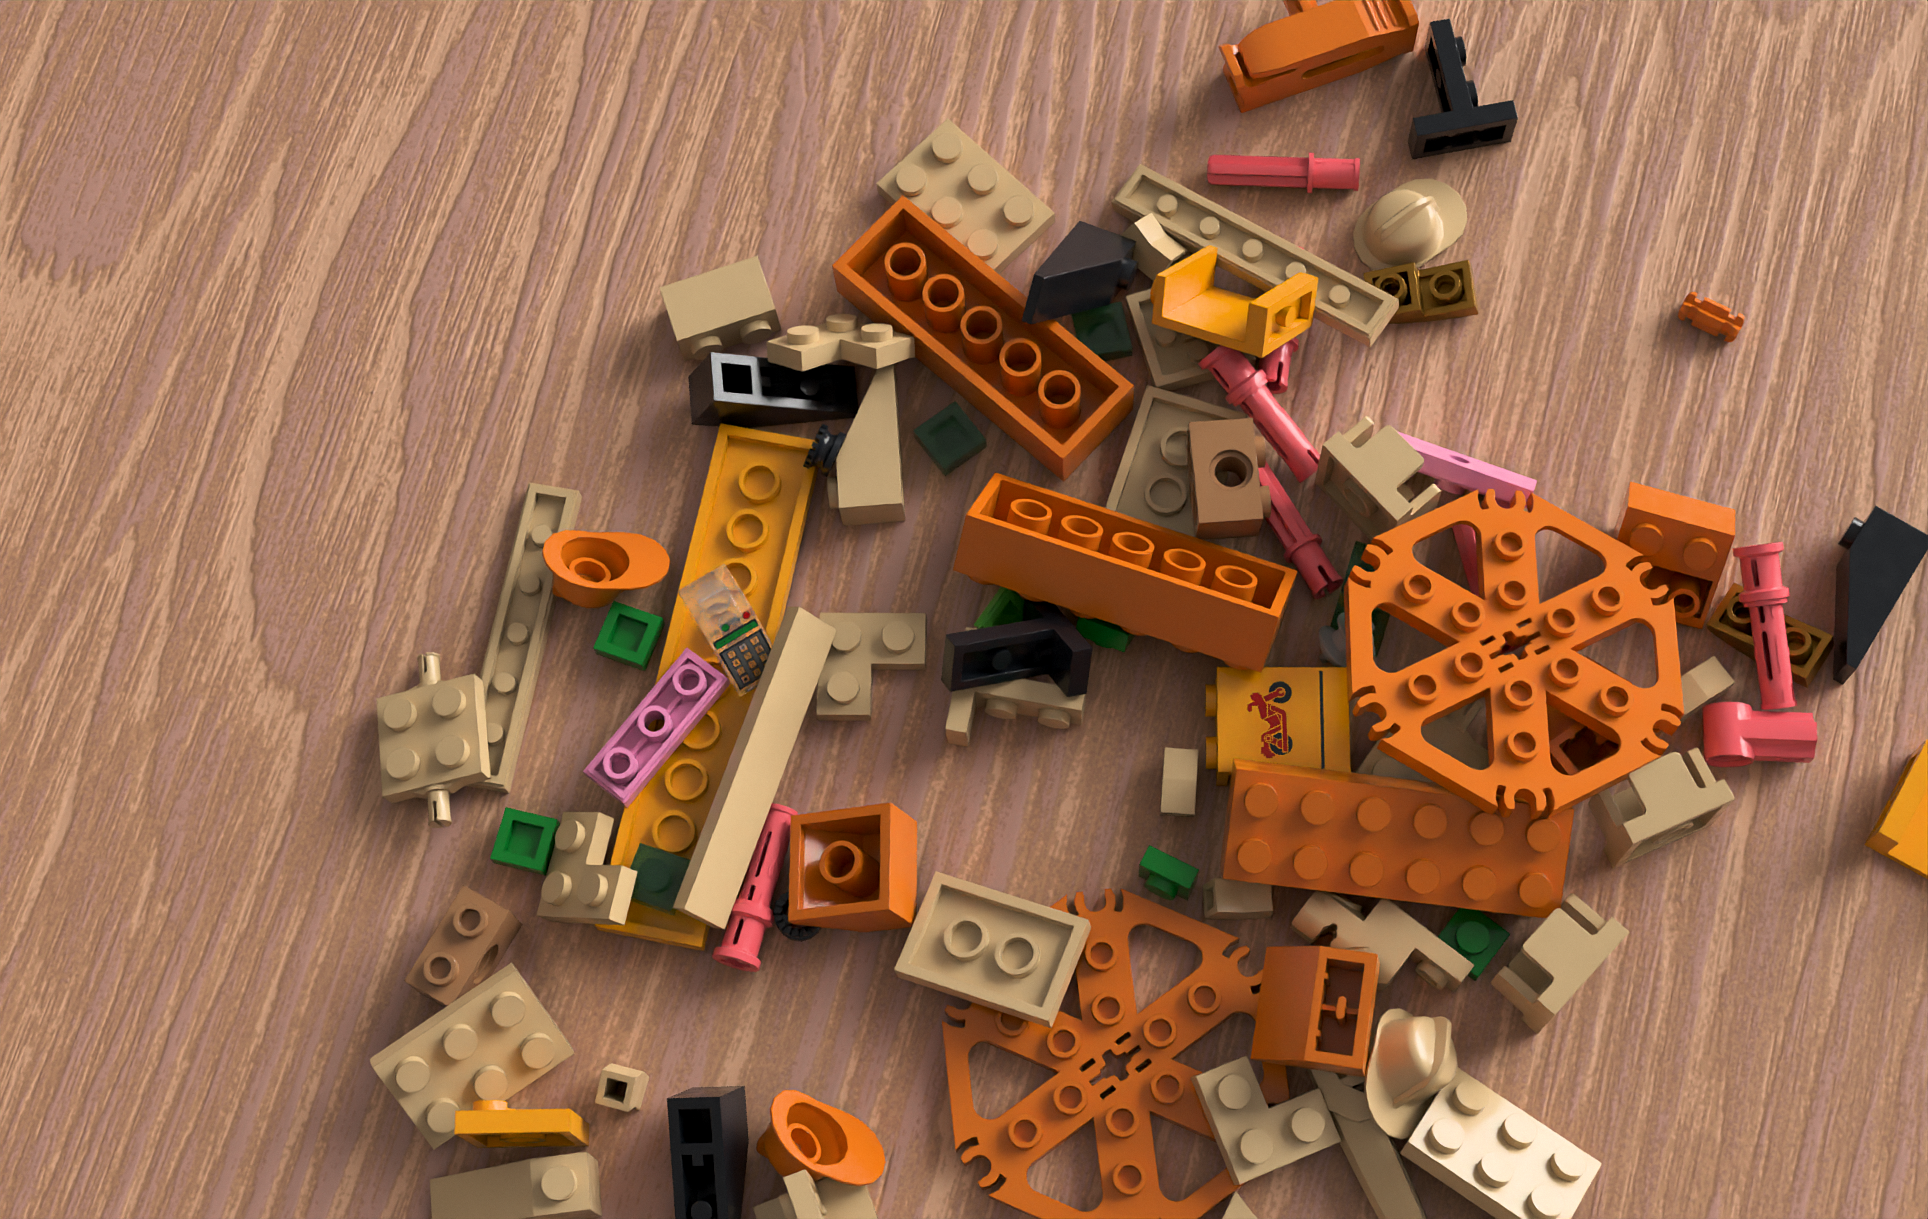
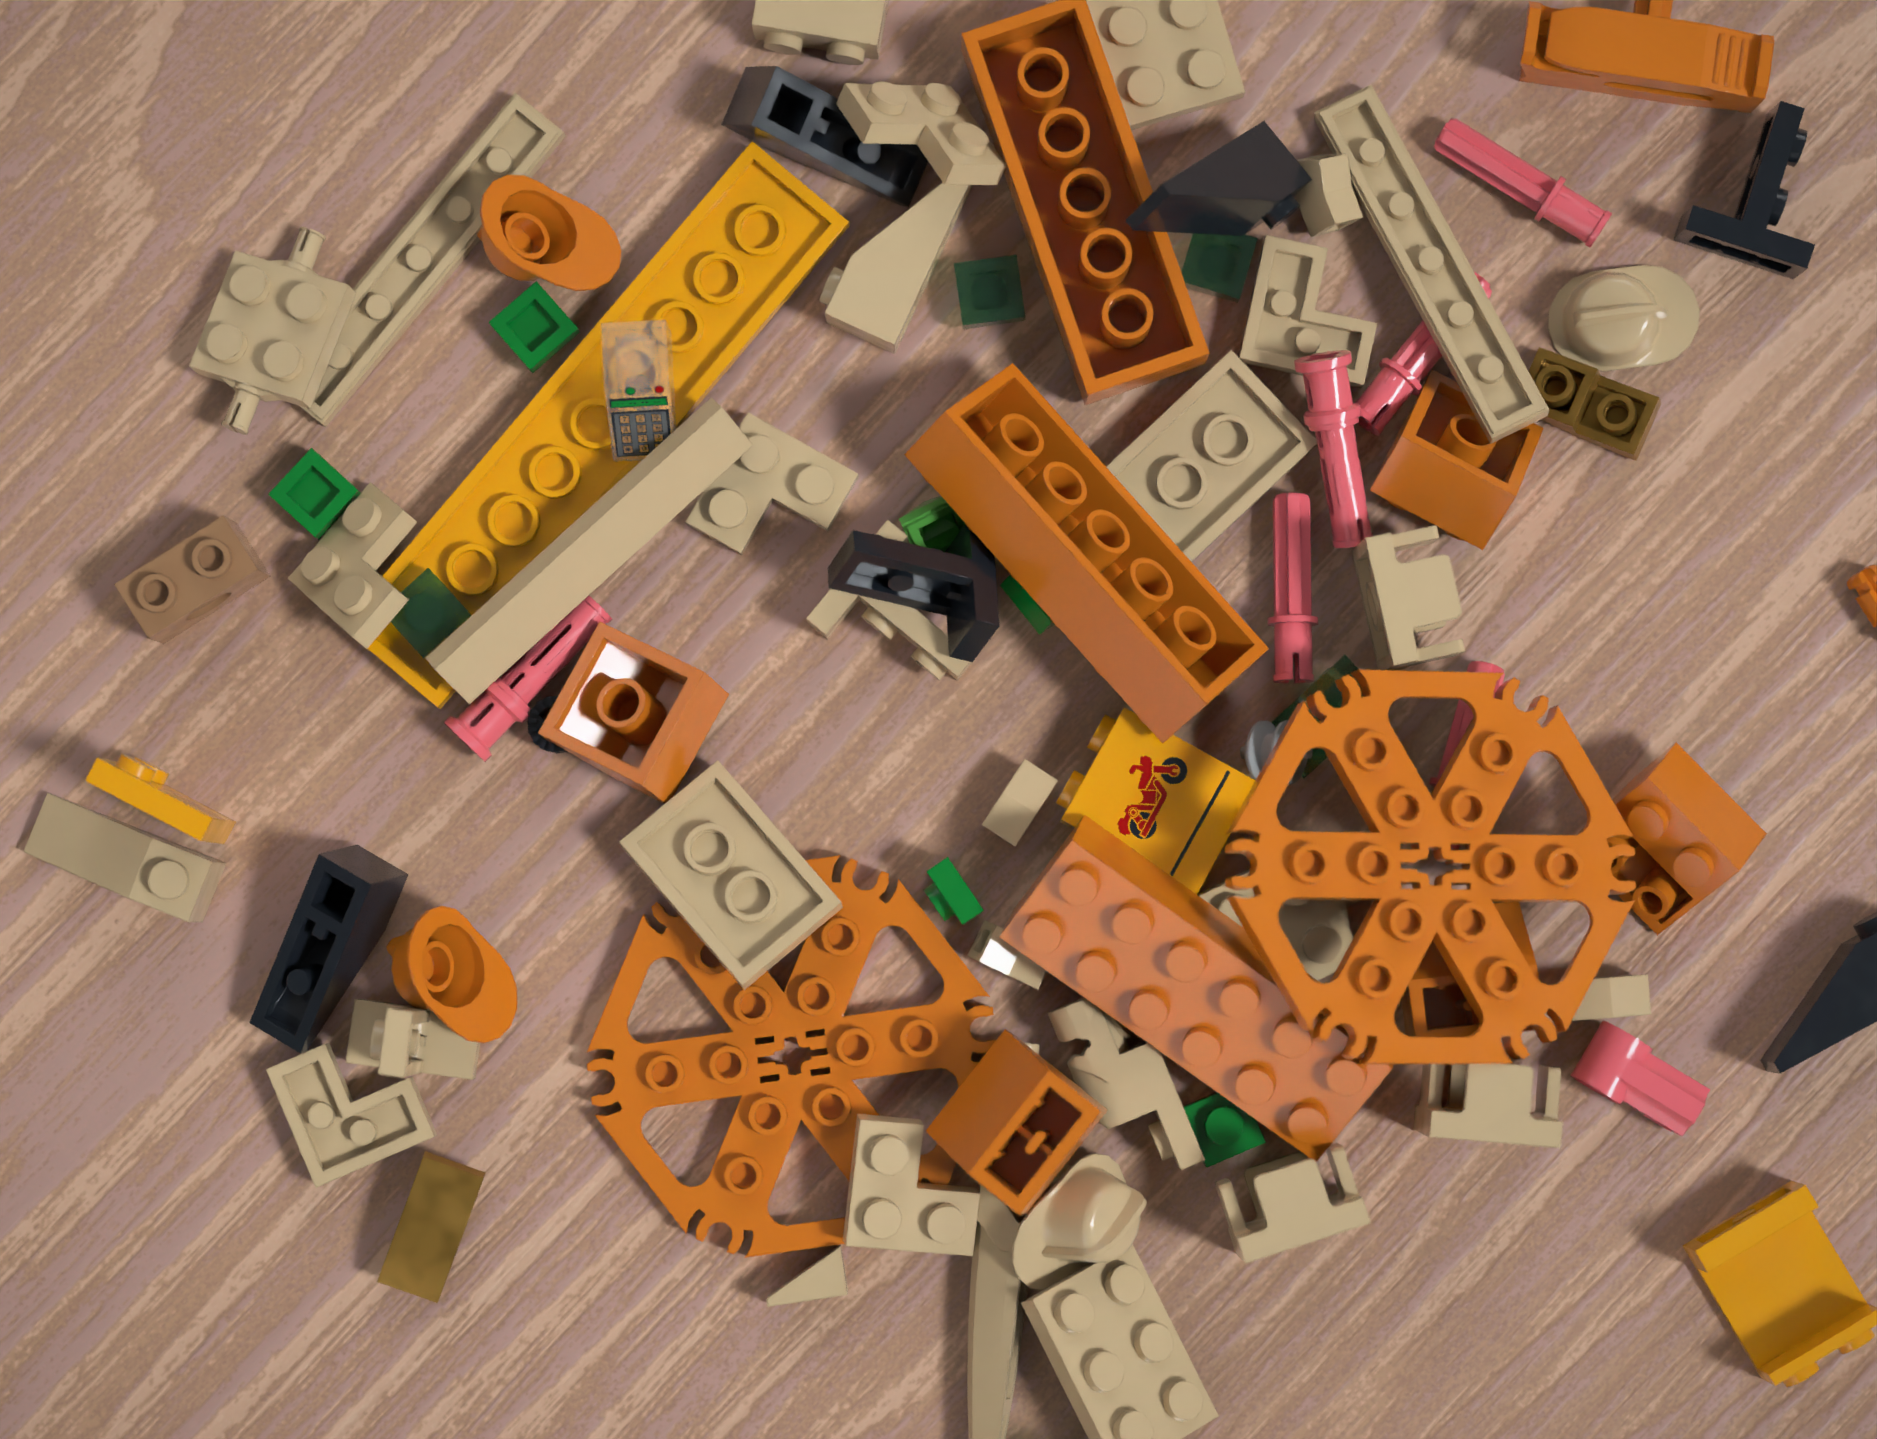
camera: 20 degrees right, 15 degrees up
(471, 1051) = (148, 695): tan plate -> none
(609, 1083) = (293, 800): tan piece -> none
(635, 752) = (548, 436): bright pink tile -> none
(824, 450) = (845, 241): black bush -> none
(1192, 305) = (1357, 325): light orange panel -> none
(1221, 509) = (1257, 469): medium nougat brick -> none
(1349, 380) = (1449, 469): none -> orange slope
(1459, 472) = (1508, 630): bright pink tile -> none
(1764, 597) = (1732, 949): coral pin -> none
(1806, 643) = (1723, 981): pearl gold slope -> none

